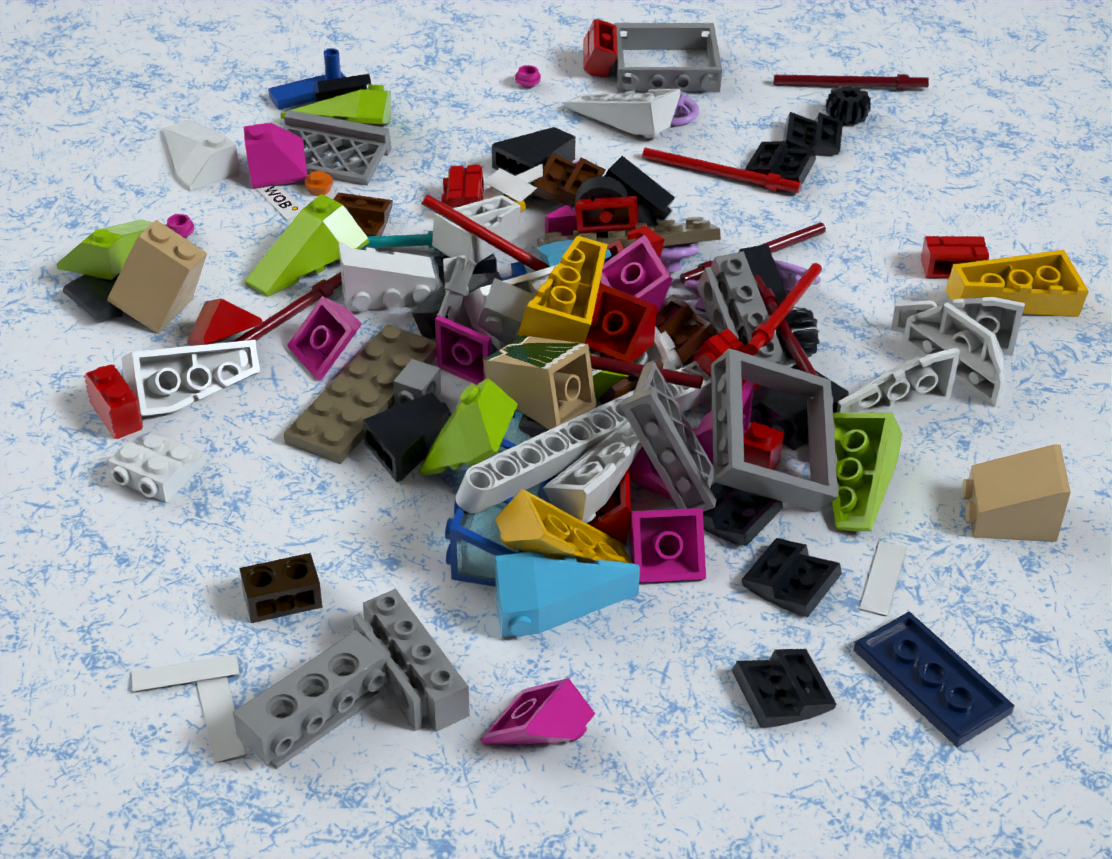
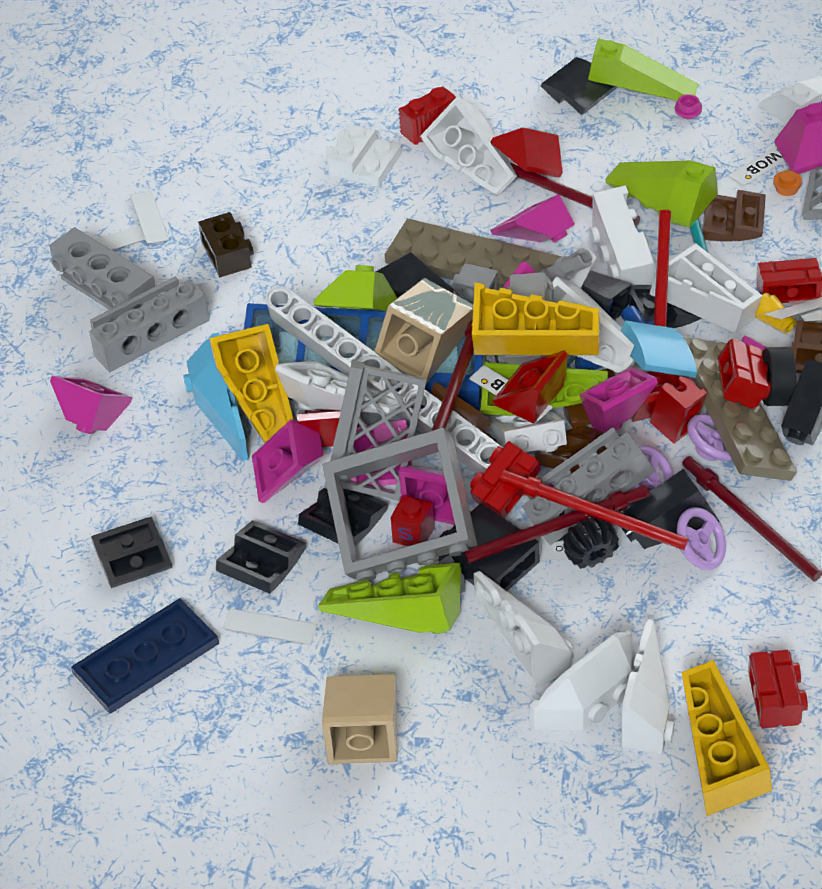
camera: 90 degrees right, 5 degrees up
(158, 277) = (576, 98): tan slope -> none

